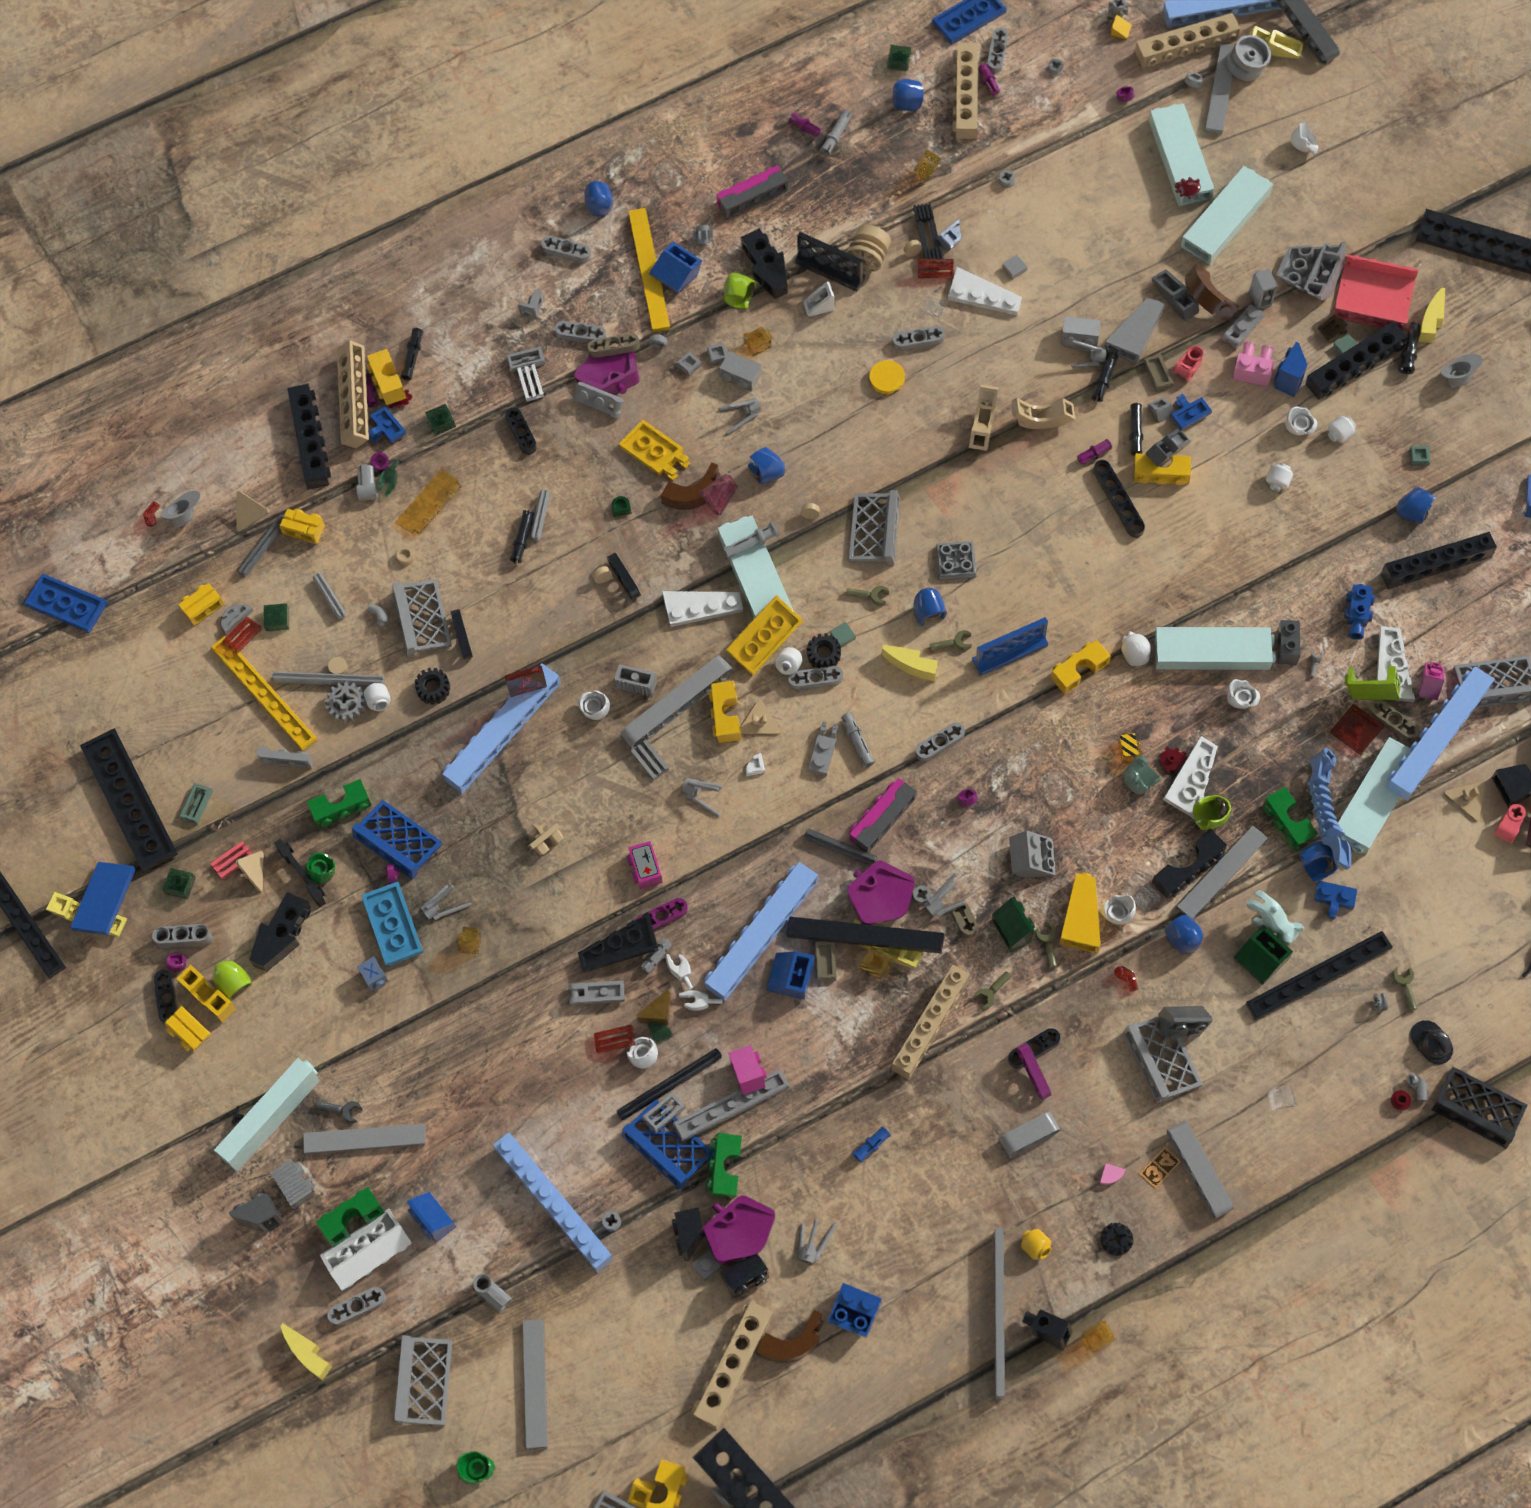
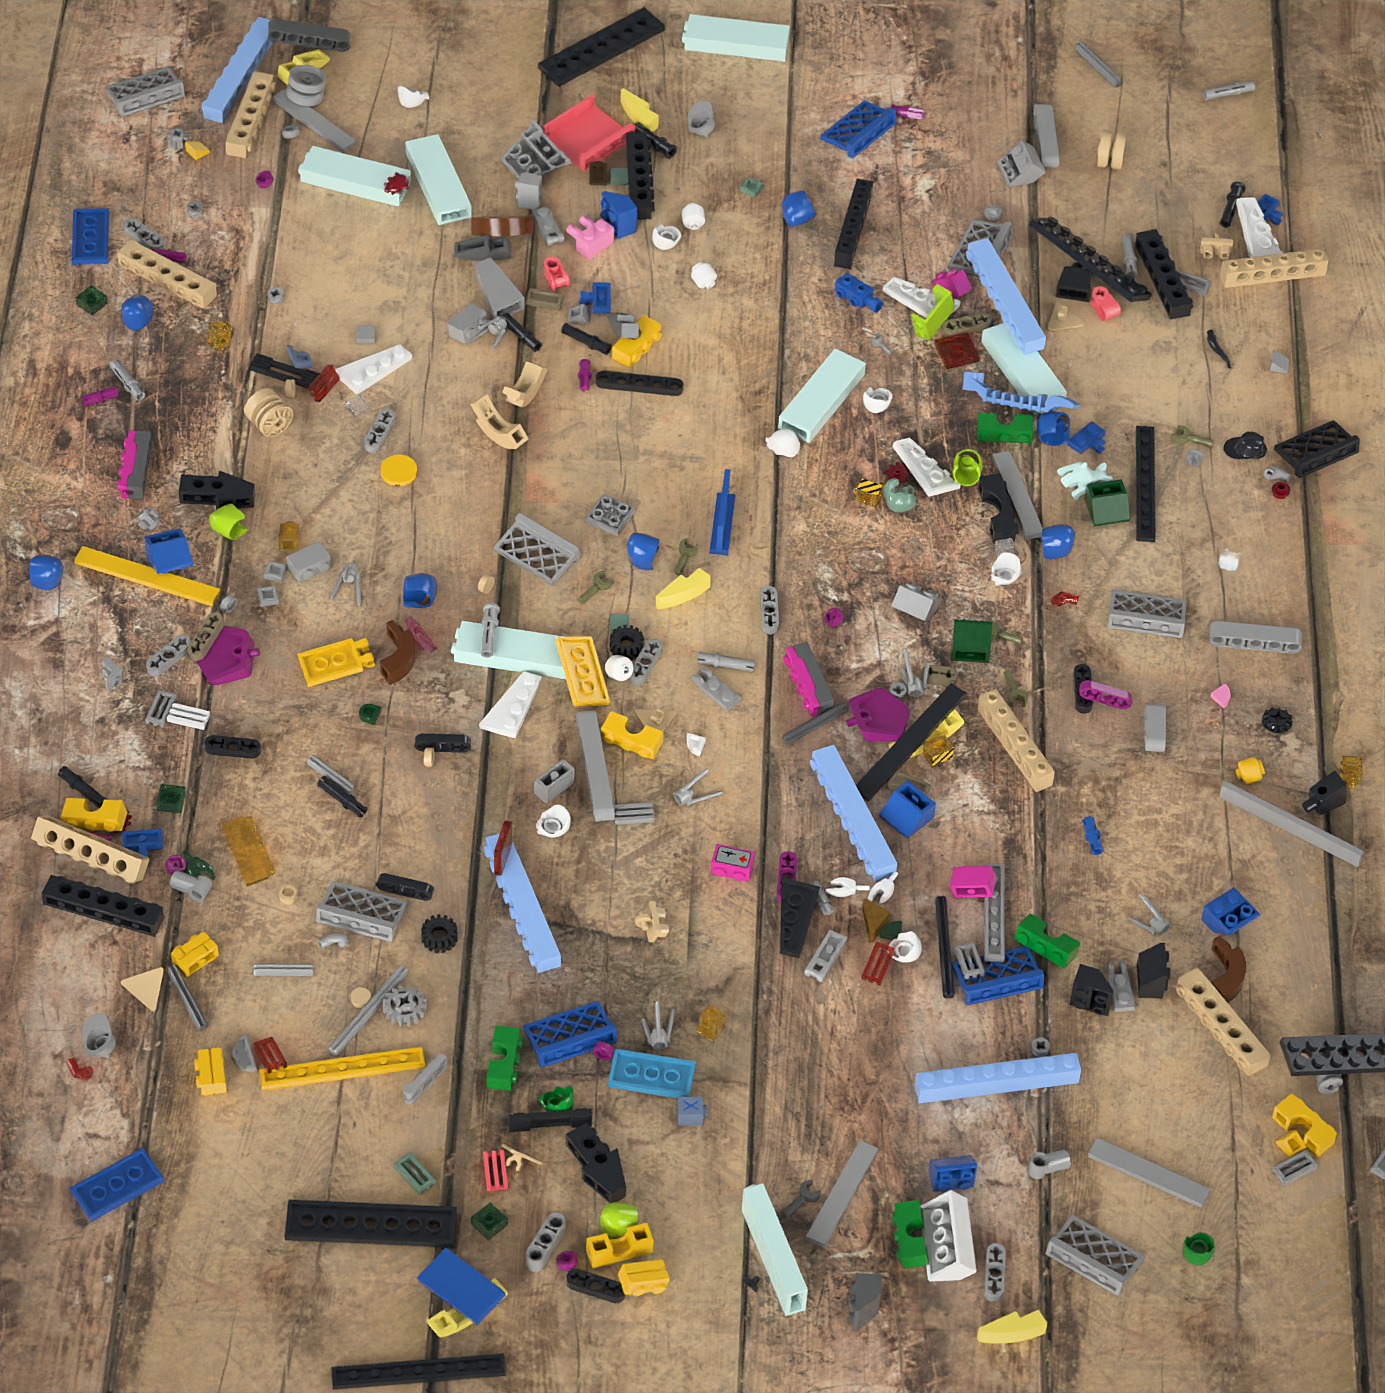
camera: 65 degrees left, 15 degrees down
(276, 617) = (272, 1020): clear green piece -> none
(292, 1183) = (845, 1264): light grey brick -> none
(377, 697) = (419, 977): white head -> none
(560, 243) = (68, 631): light grey beam -> none
(598, 399) = (251, 673): light grey plate -> none
(739, 1229) = (1112, 953): magenta animal -> none
(820, 301) = (287, 472): white slope -> none
(832, 269) = (262, 450): black fence -> none
(1082, 918) = (992, 597): yellow slope -> none
(1092, 656) = (774, 496): yellow arch -> none
(1160, 1167) = (1235, 664): clear orange sticker -> none
(1184, 1021) = (1130, 577): dark grey slope -> none
(1288, 642) = (854, 345): dark grey brick -> none

